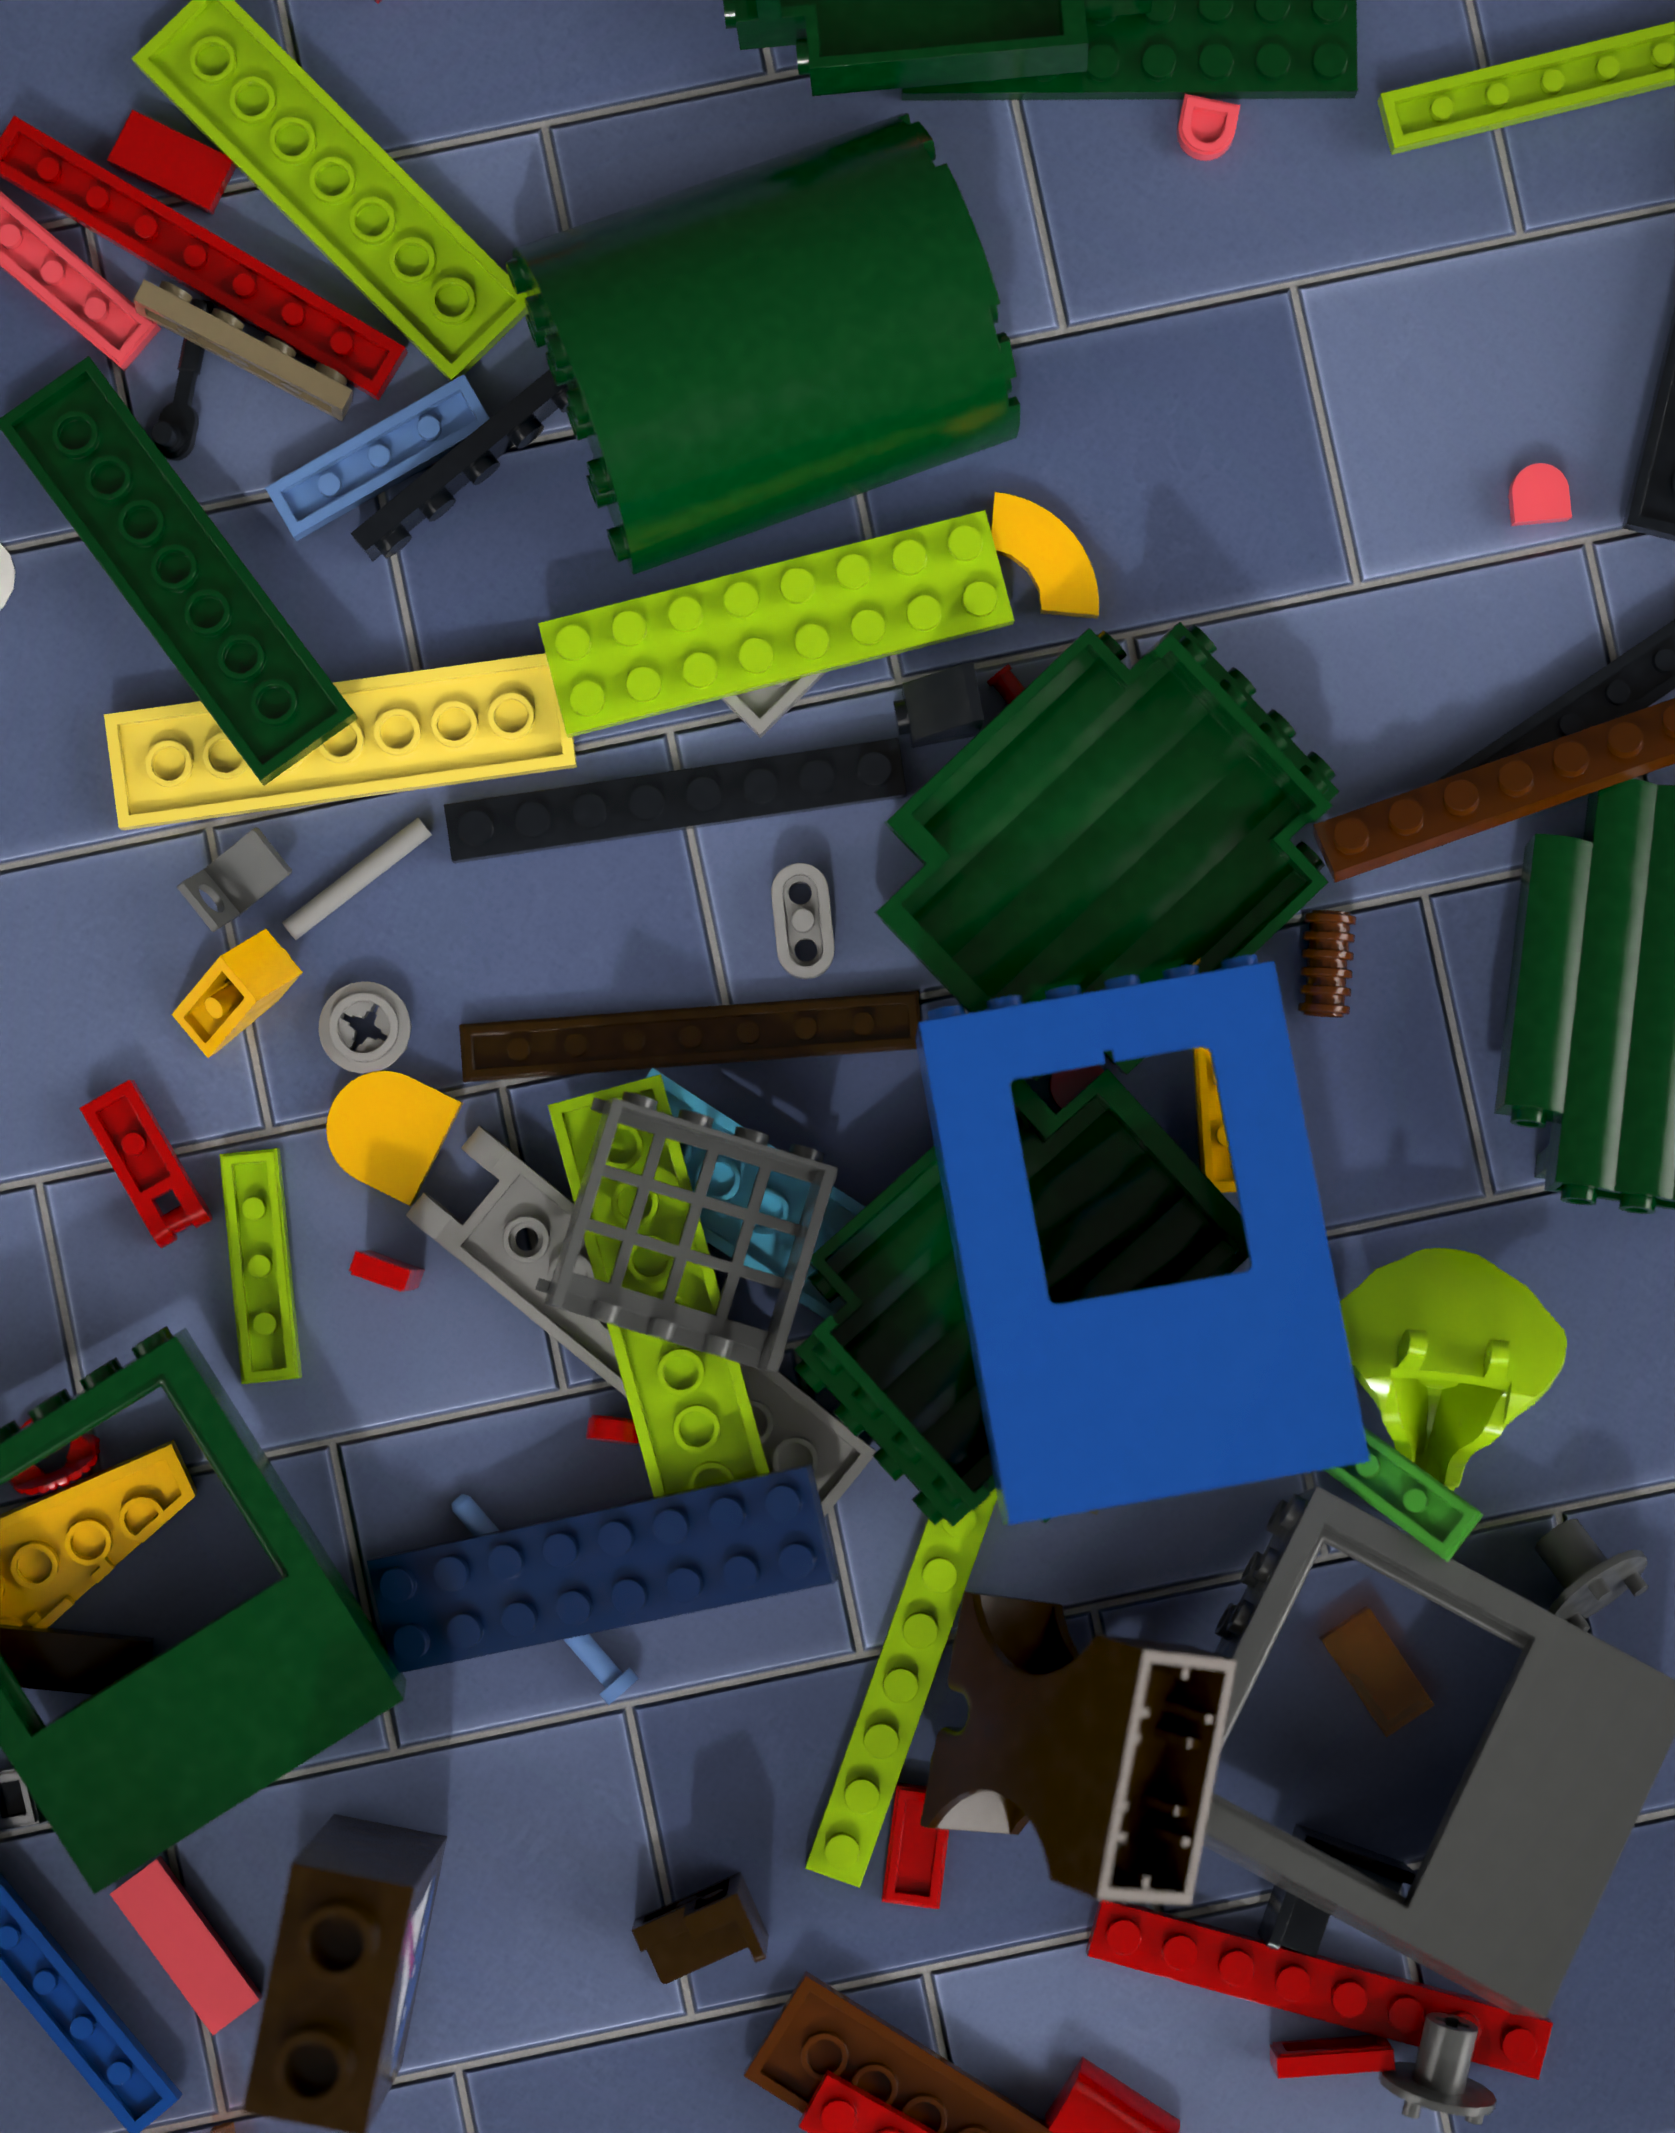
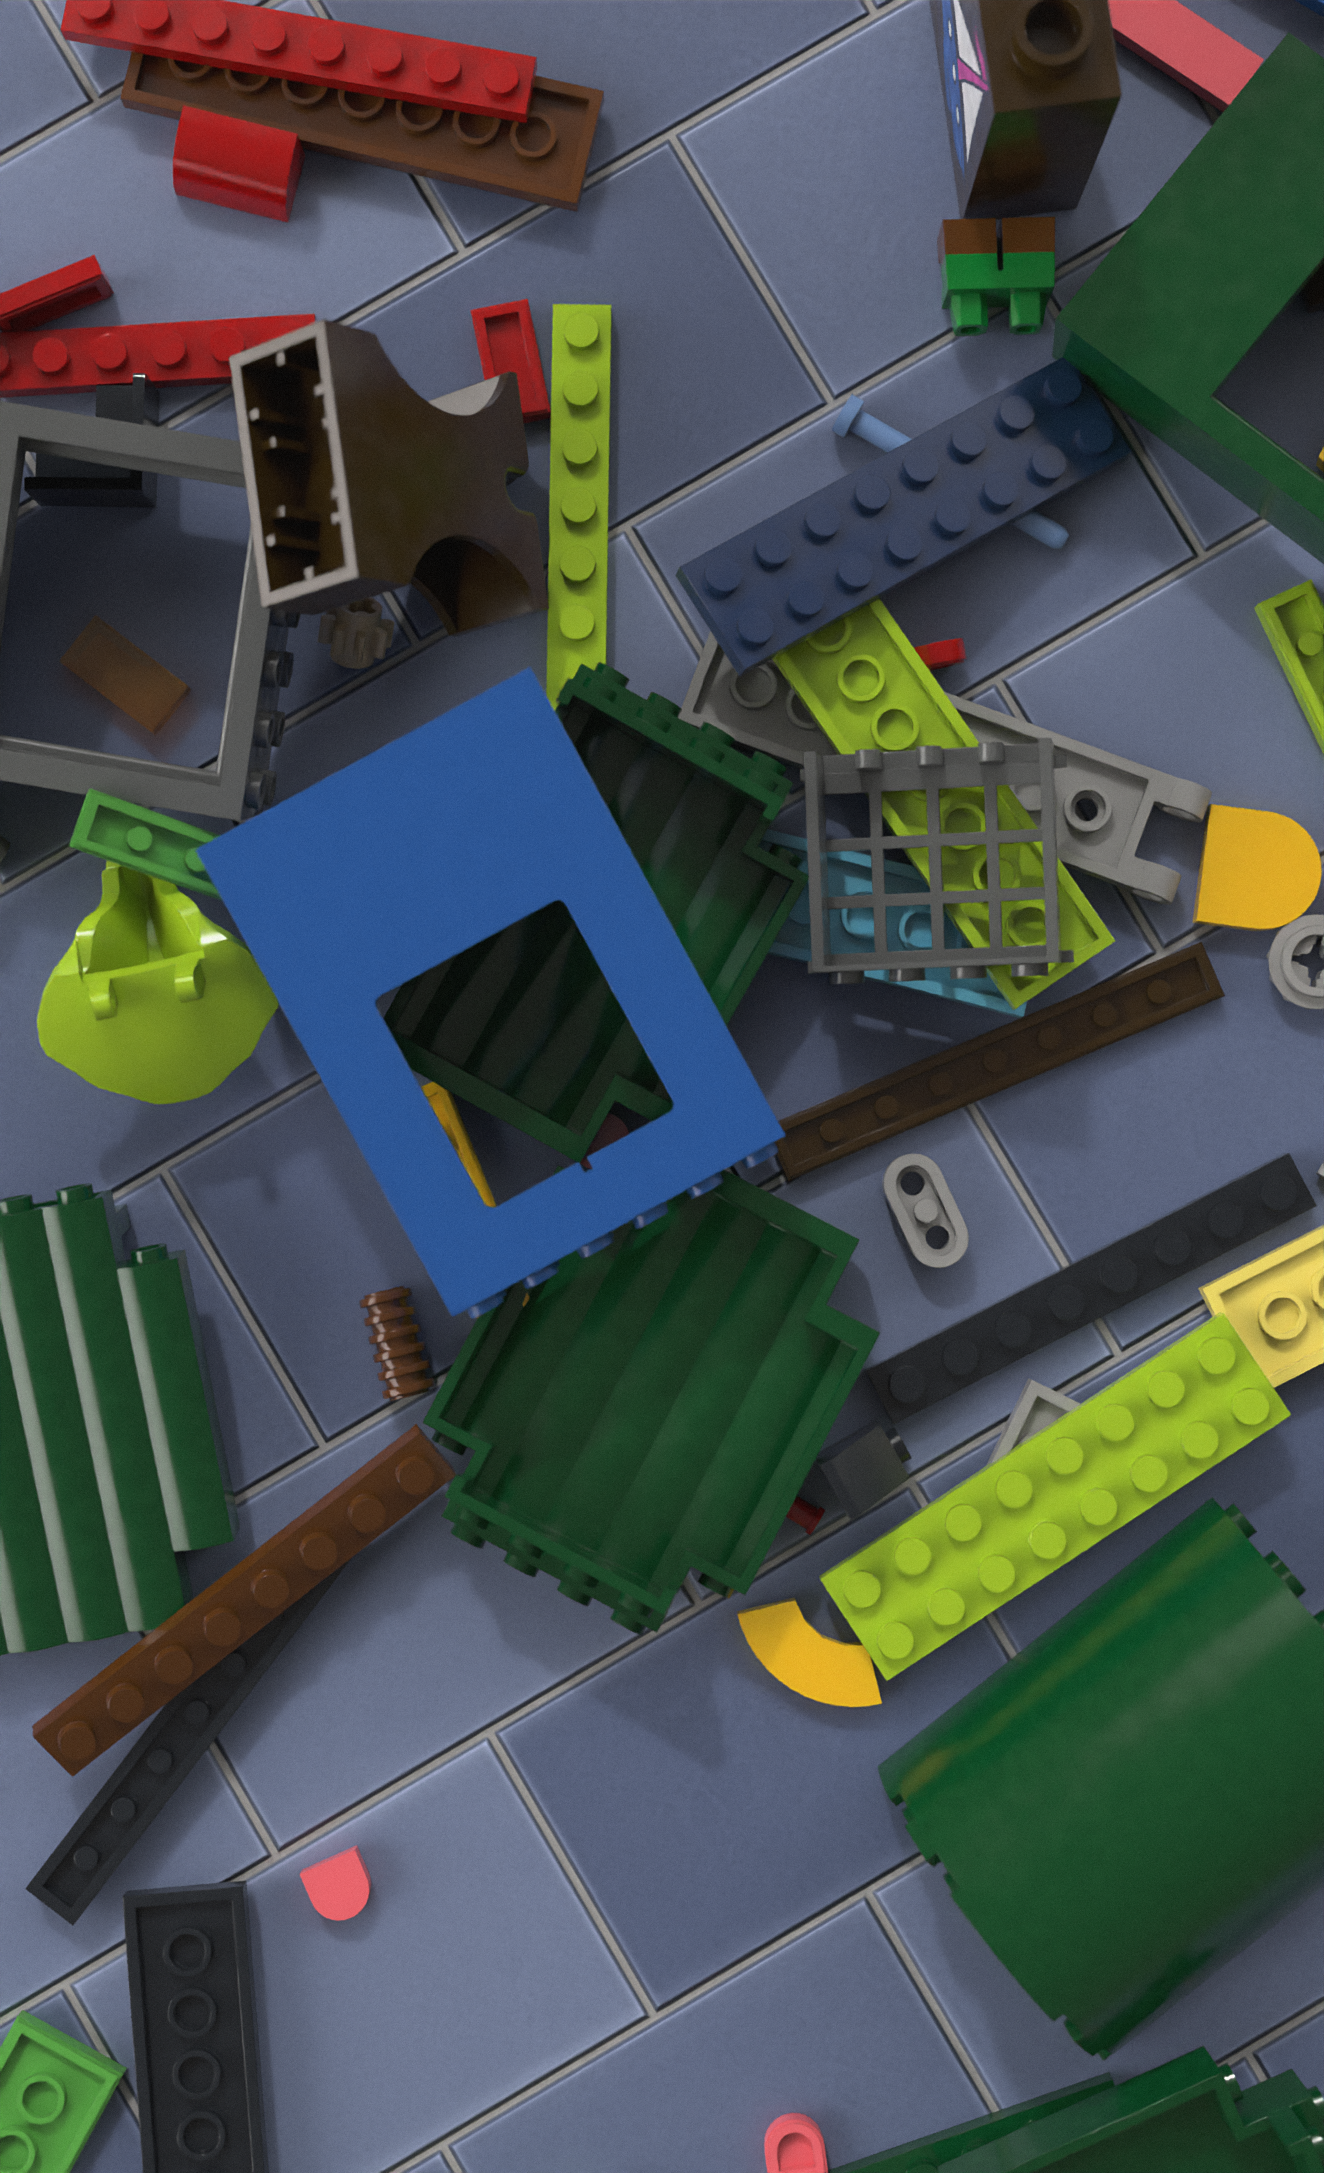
camera: 165 degrees right, 0 degrees up
(386, 1270) = (1214, 729): red tile -> none
(458, 1779) = (976, 282): none -> green hips
(702, 1929) = (688, 216): dark brown panel -> none
(1149, 1622) = (356, 633): none -> tan gear

